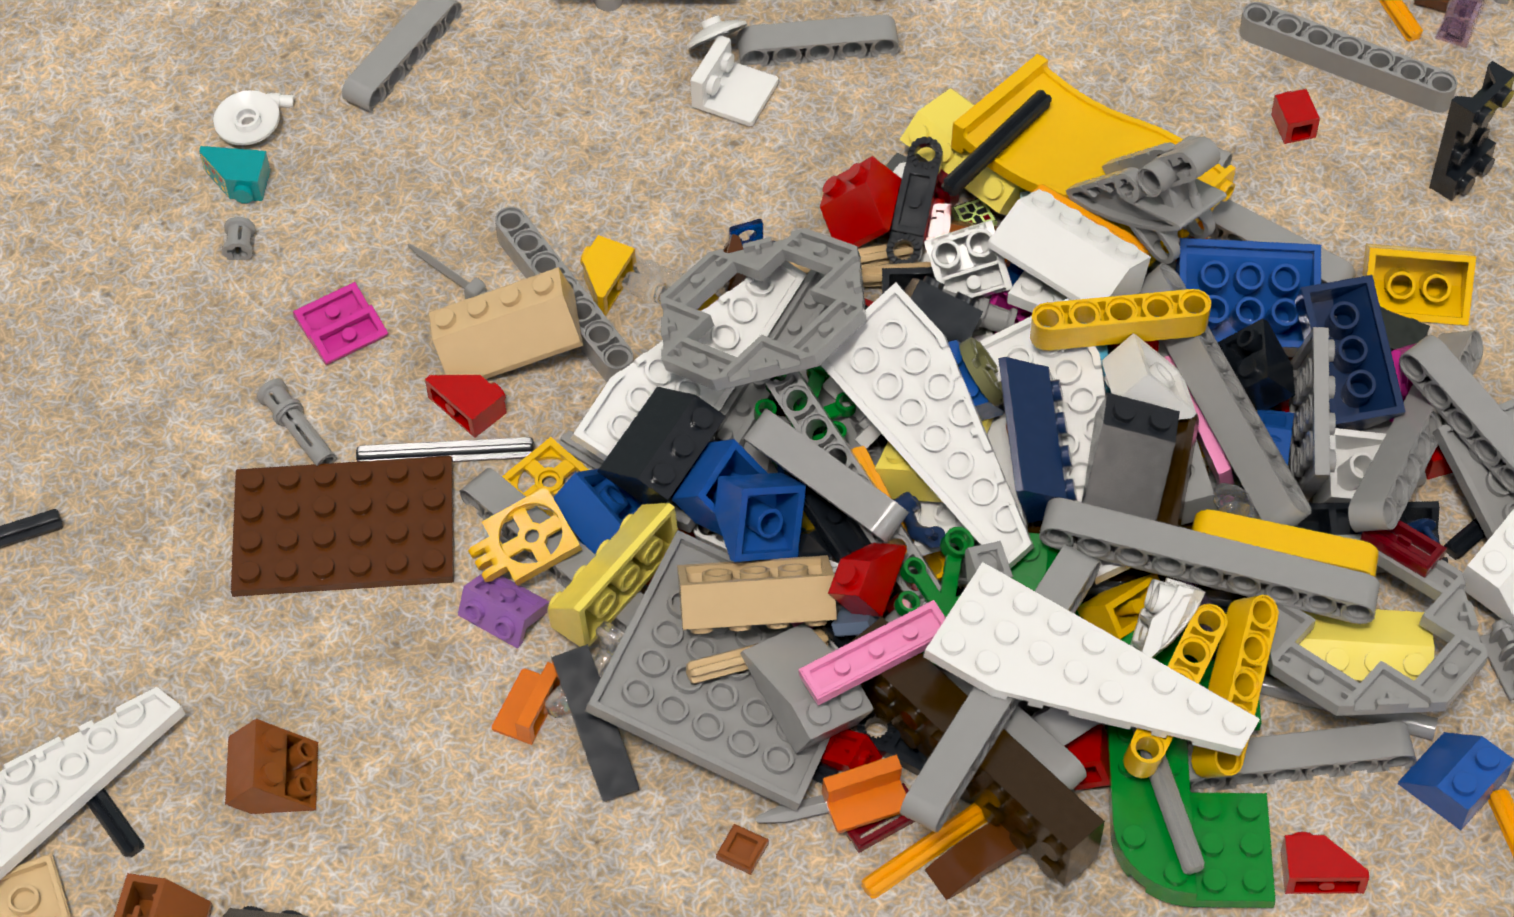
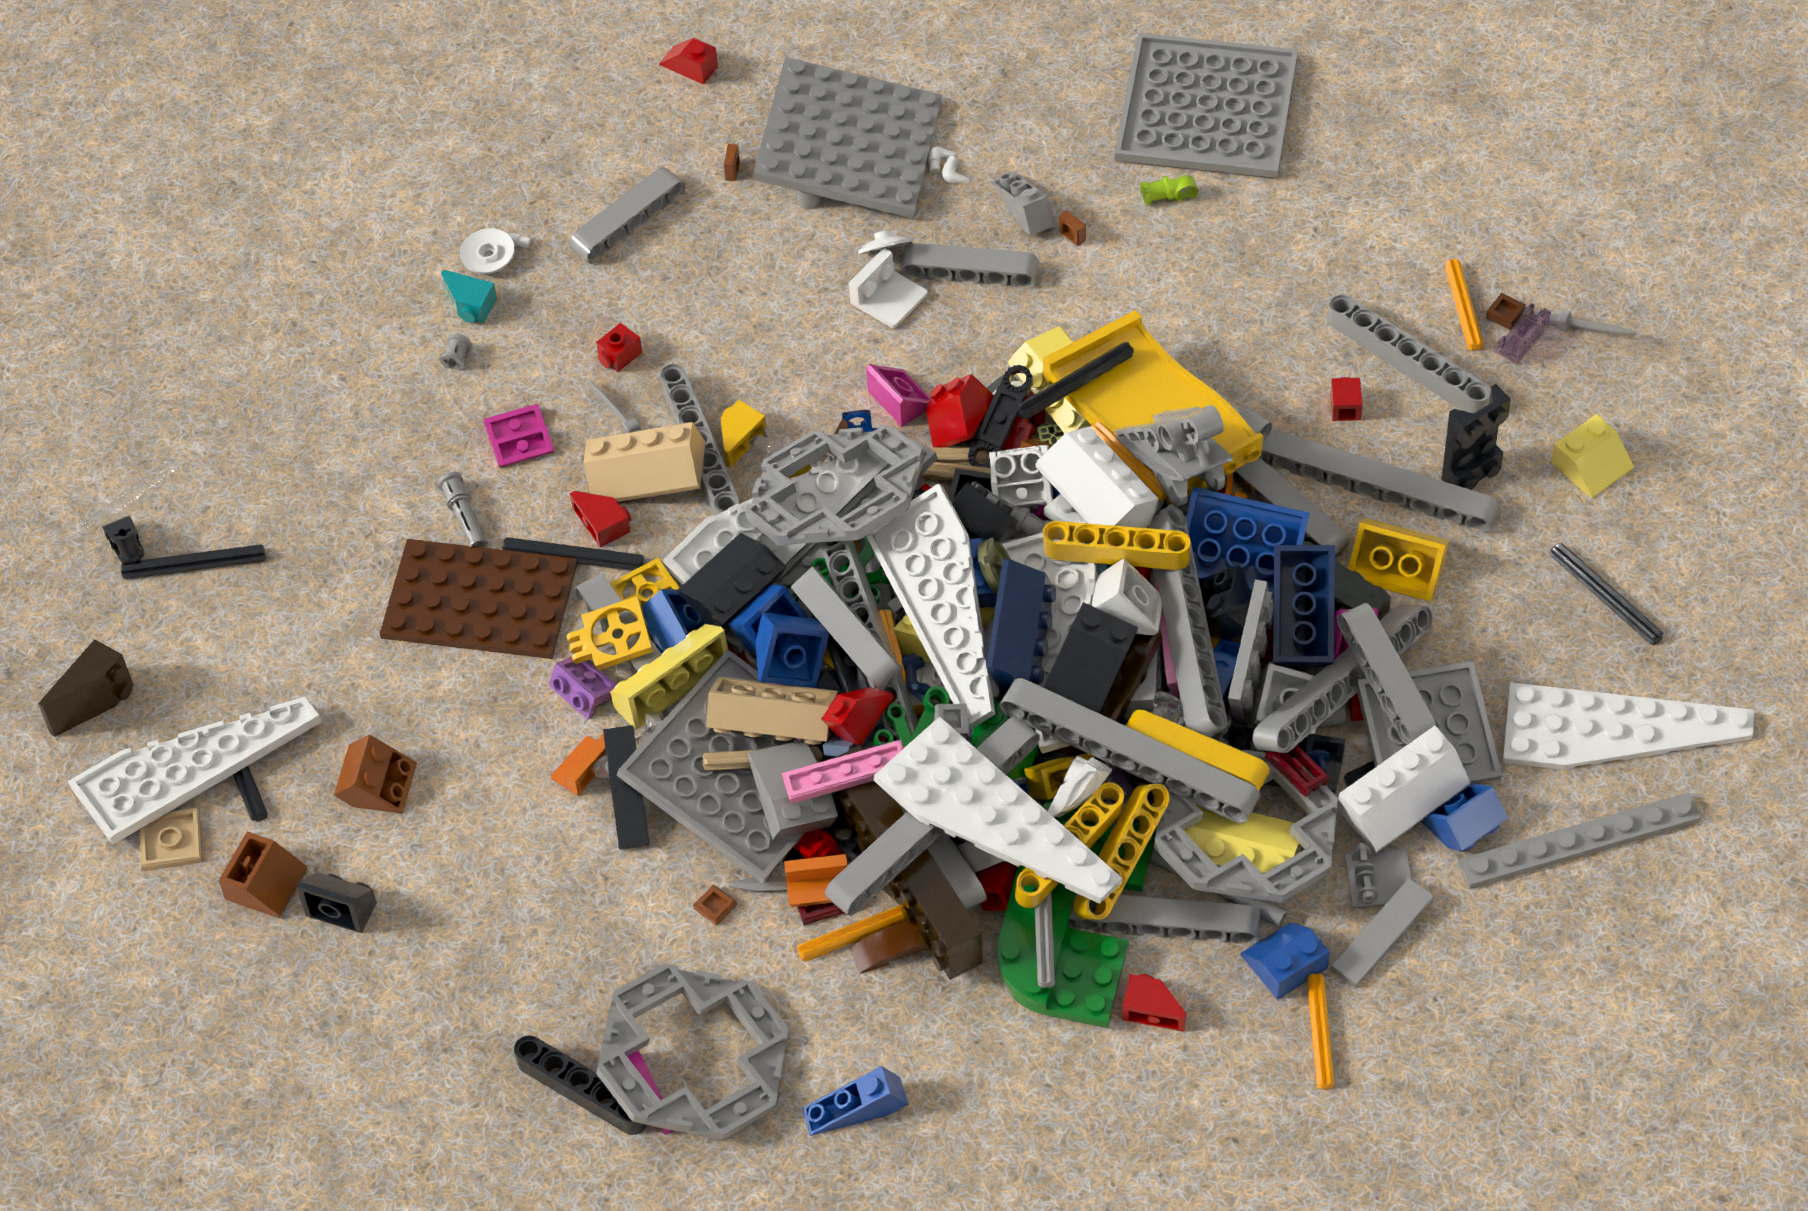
camera: 15 degrees right, 0 degrees up
(434, 201) = (618, 347): none -> red brick
(778, 198) = (896, 393): none -> dark pink slope
(1370, 200) = (1379, 480): none -> light grey beam

